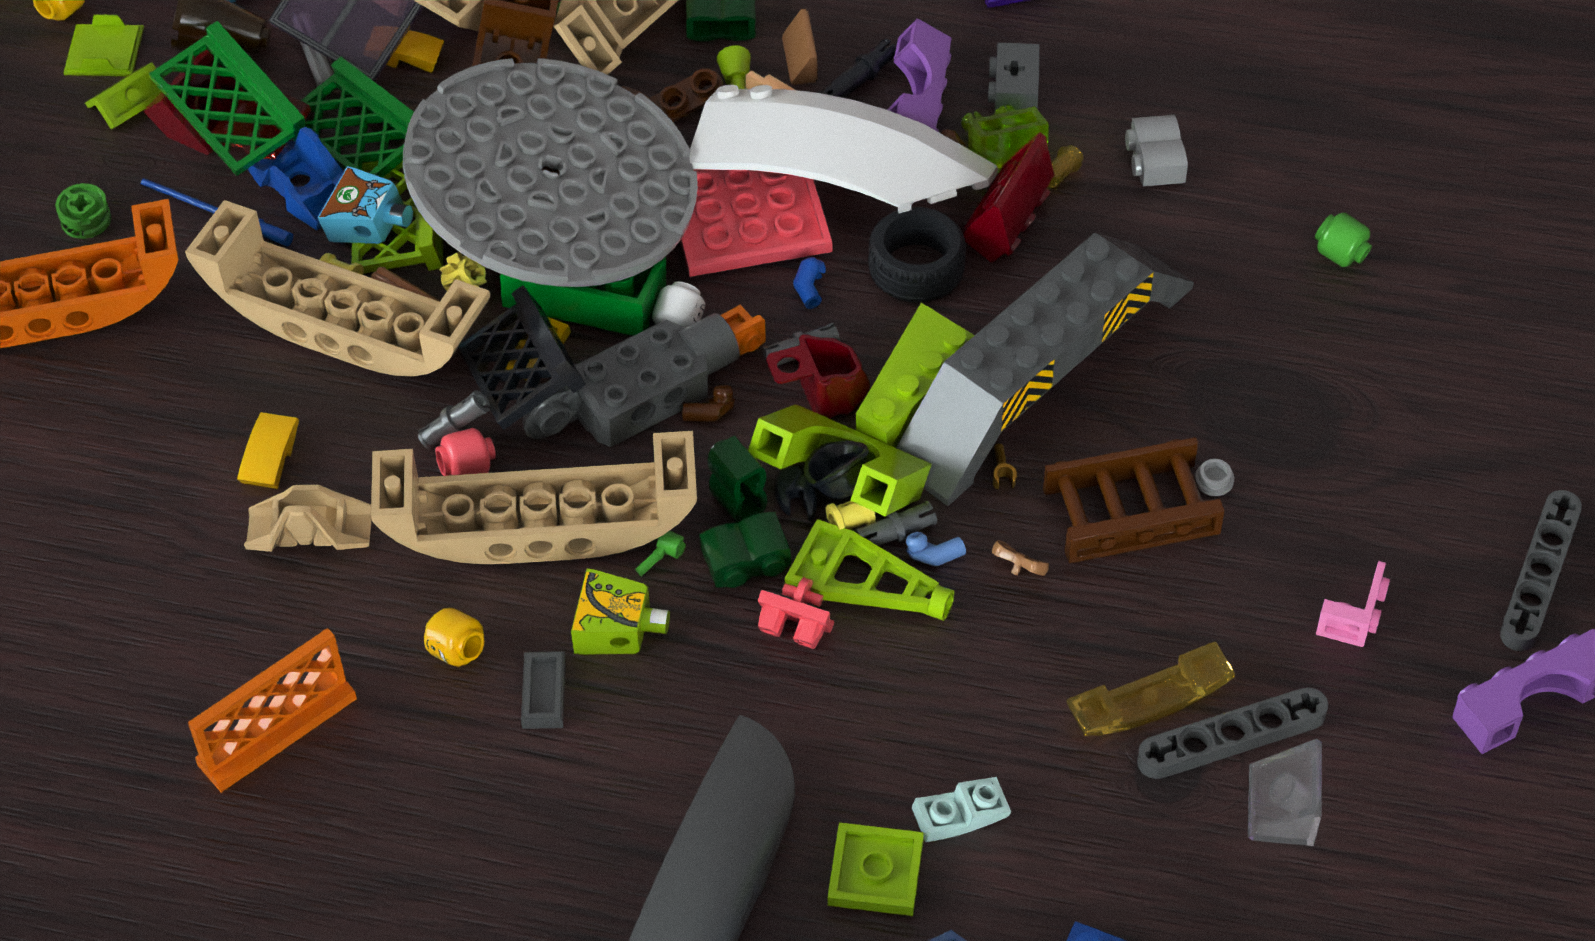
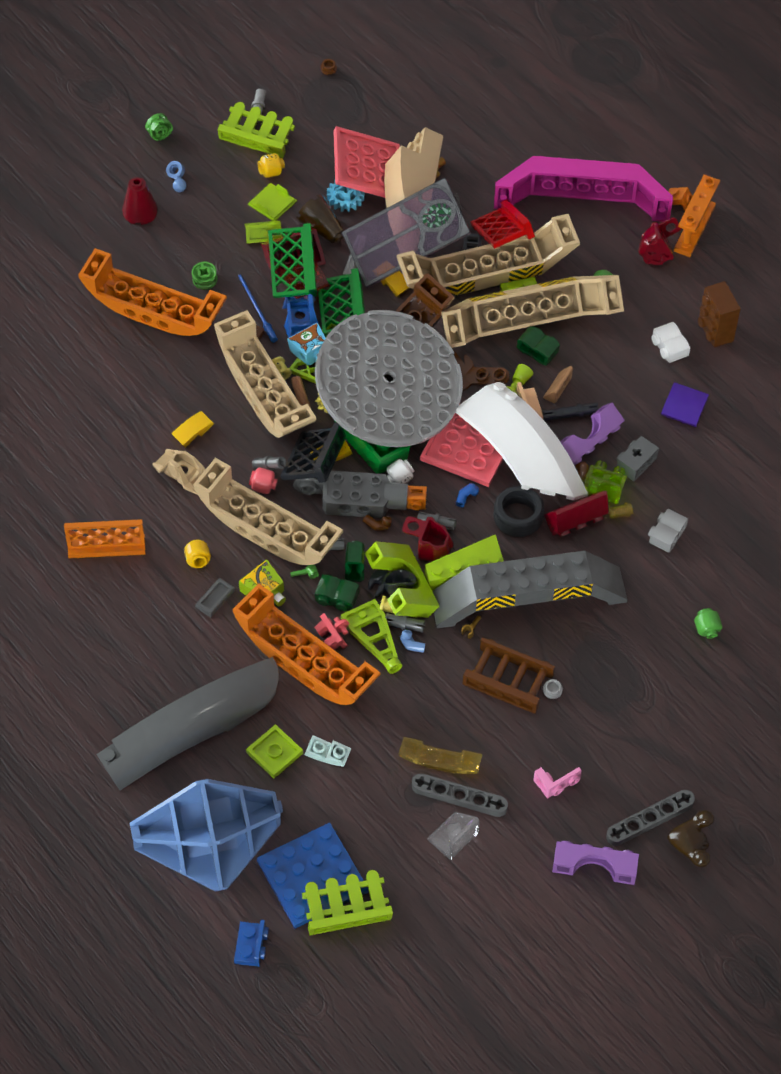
camera: 35 degrees right, 5 degrees up
(793, 677) = (300, 651): none -> orange slope
(1019, 559) = (439, 663): medium nougat piece -> none

